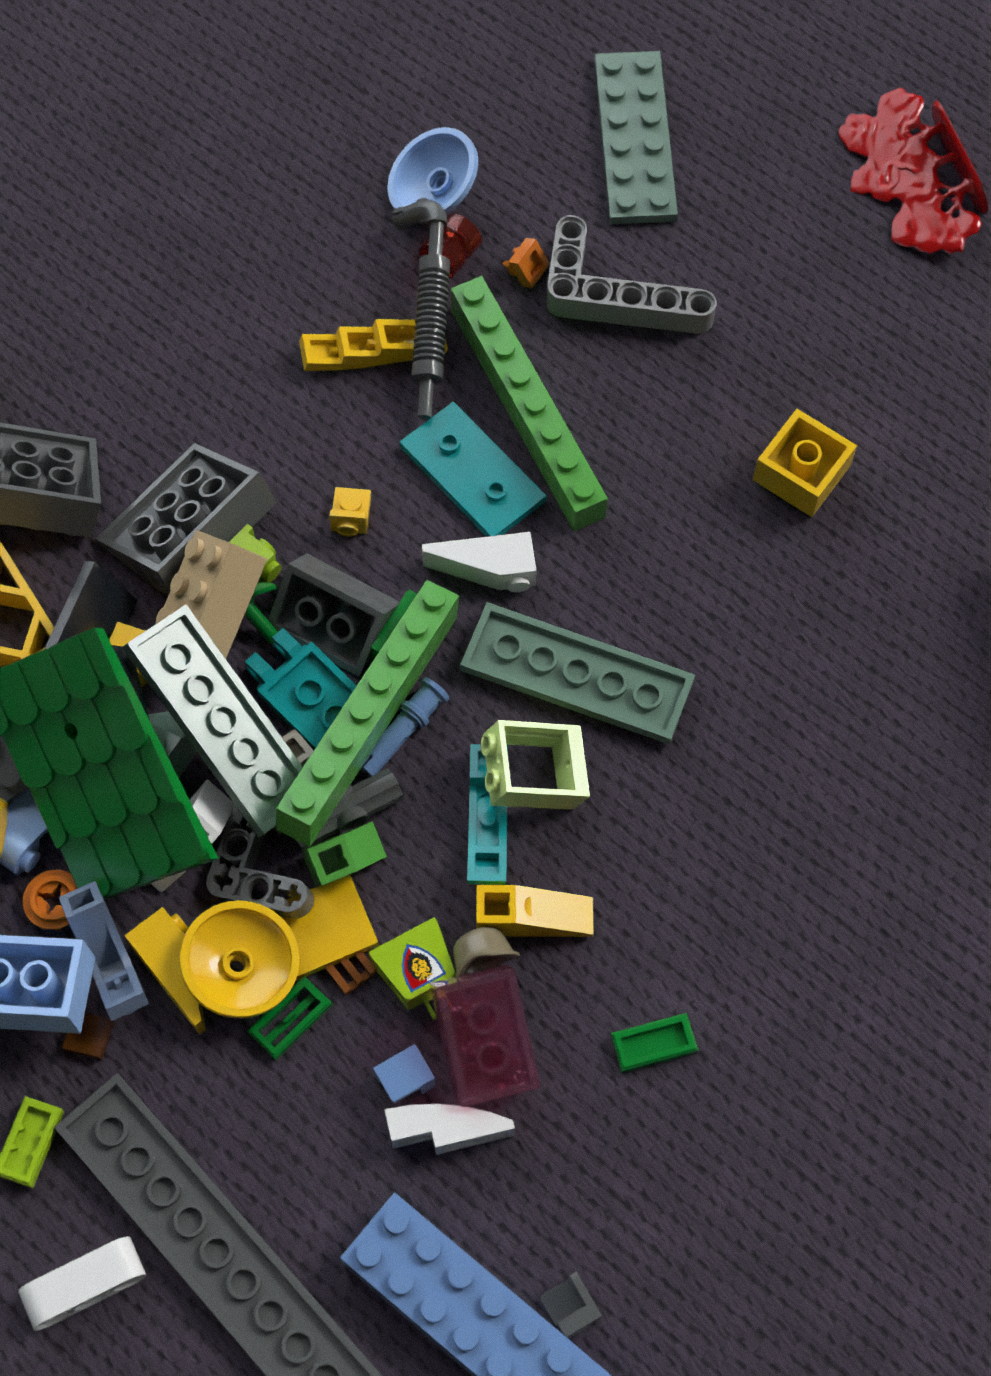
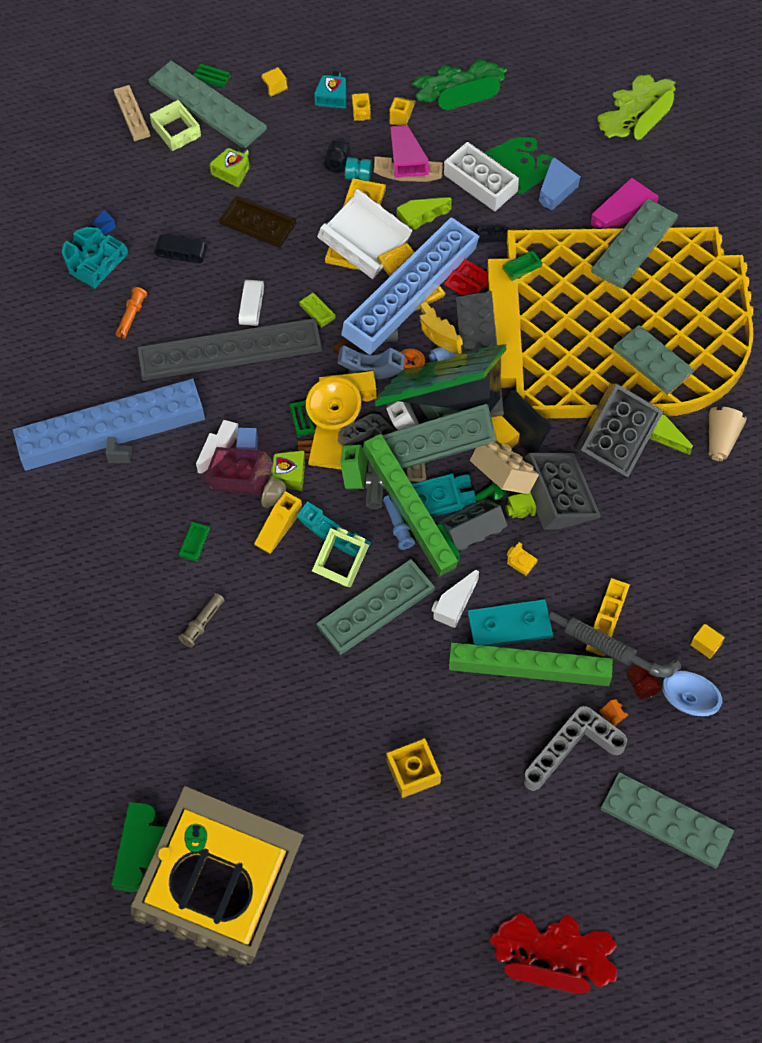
camera: 125 degrees right, 5 degrees down
(330, 195) = (707, 641): none -> yellow panel
(806, 925) = (196, 626): none -> dark tan pin

